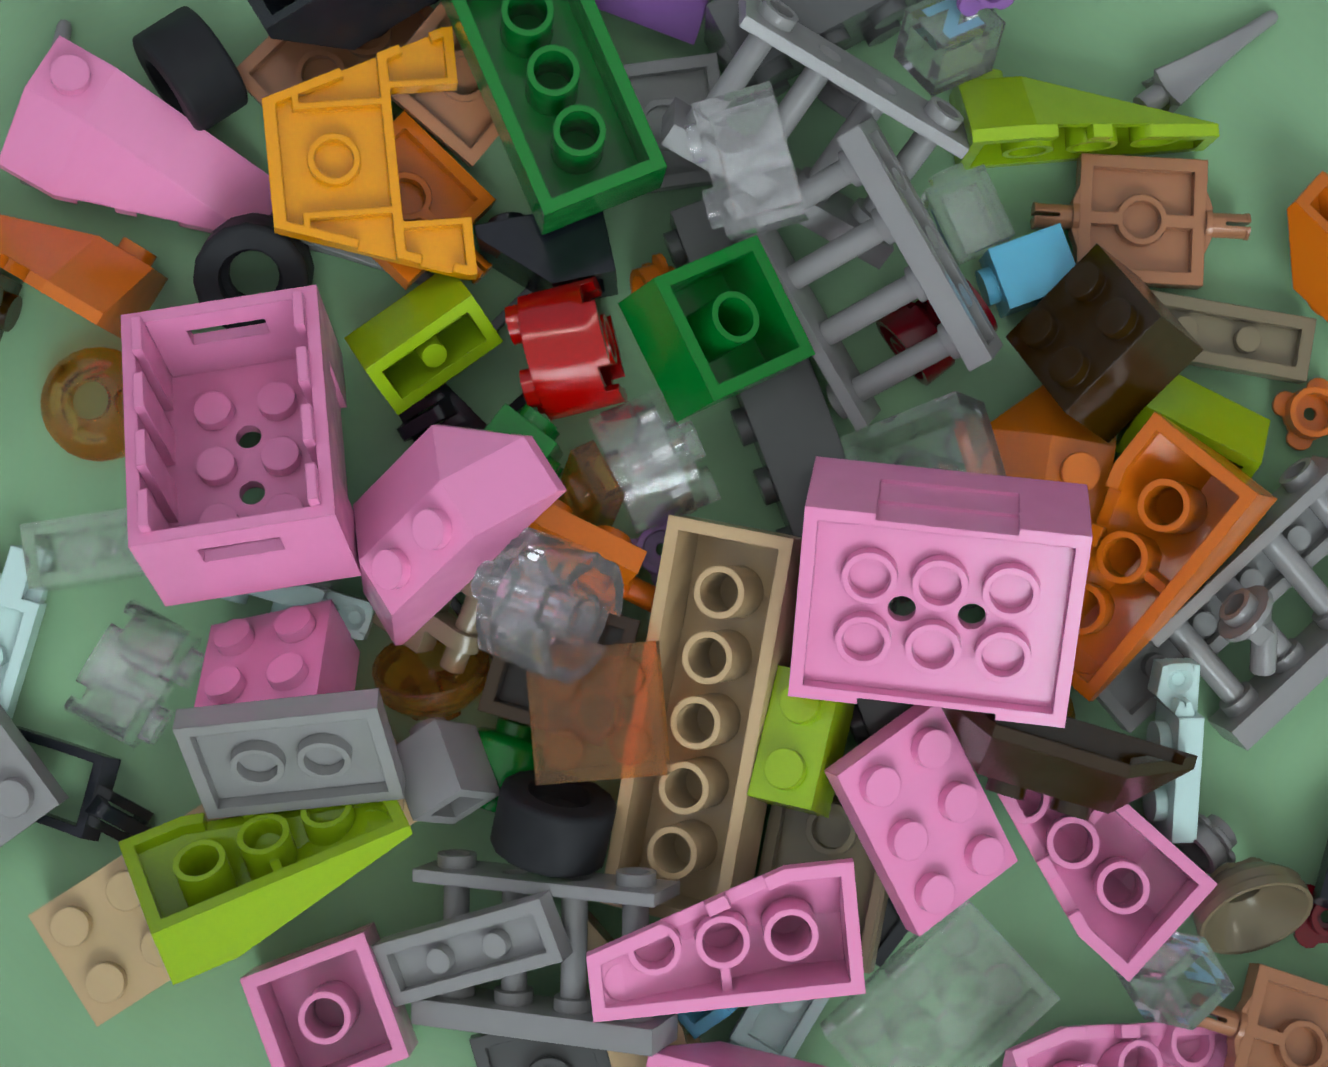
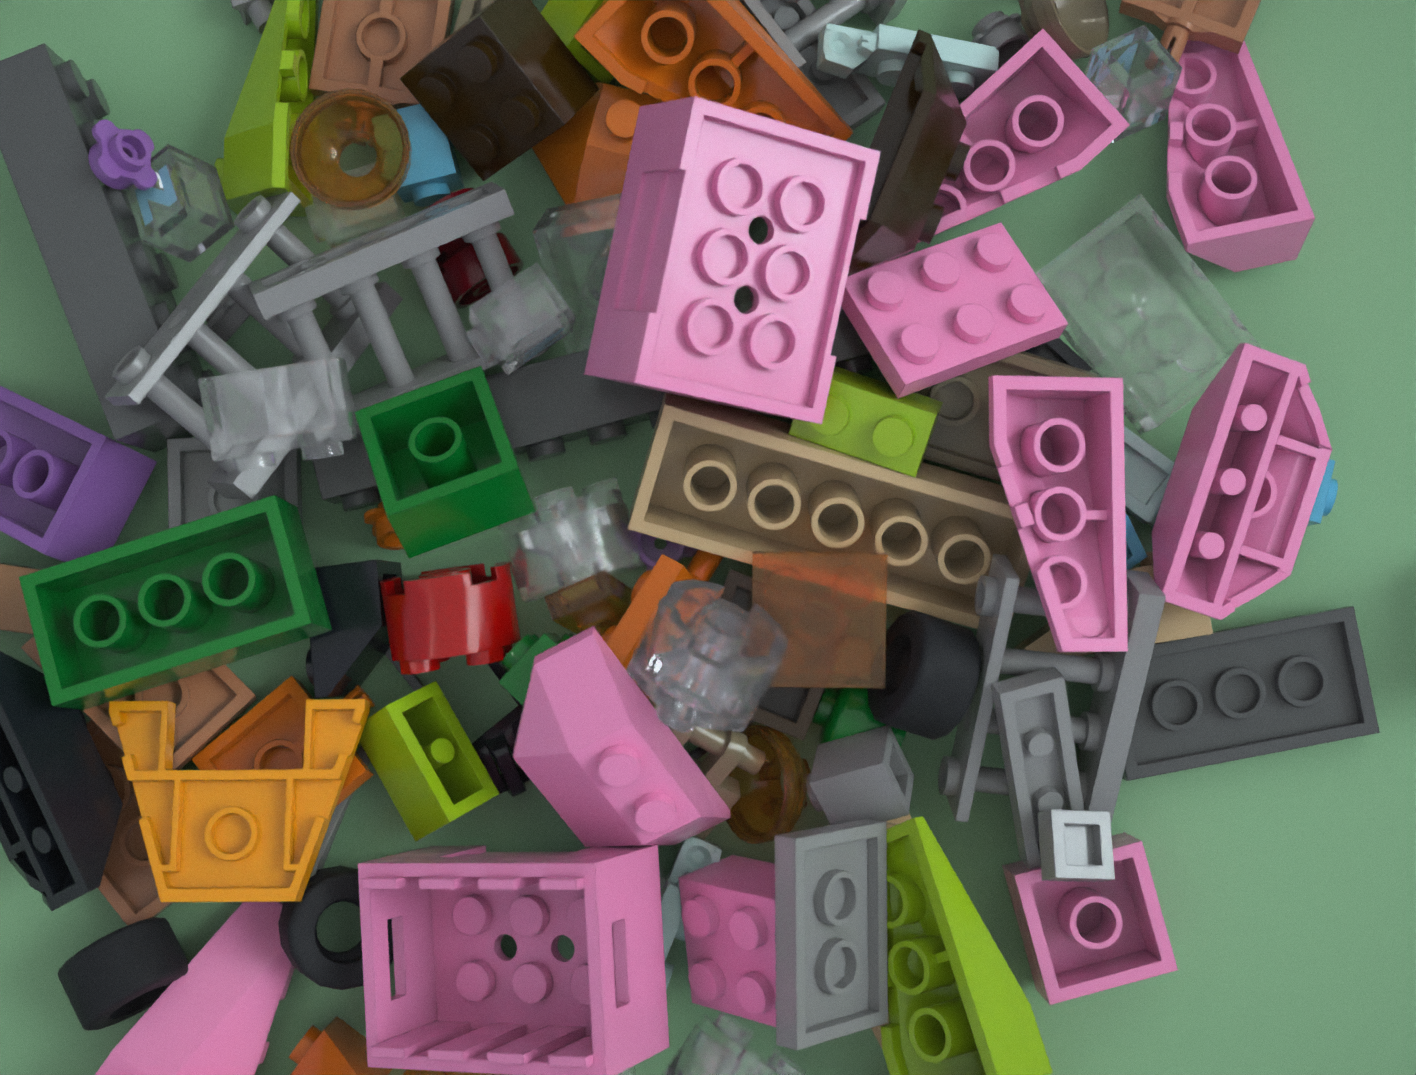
camera: 85 degrees left, 0 degrees up
(397, 990) = (1076, 846): none -> plate
(864, 387) = (519, 320): none -> clear brick
(1041, 180) = (331, 126): none -> clear orange piece

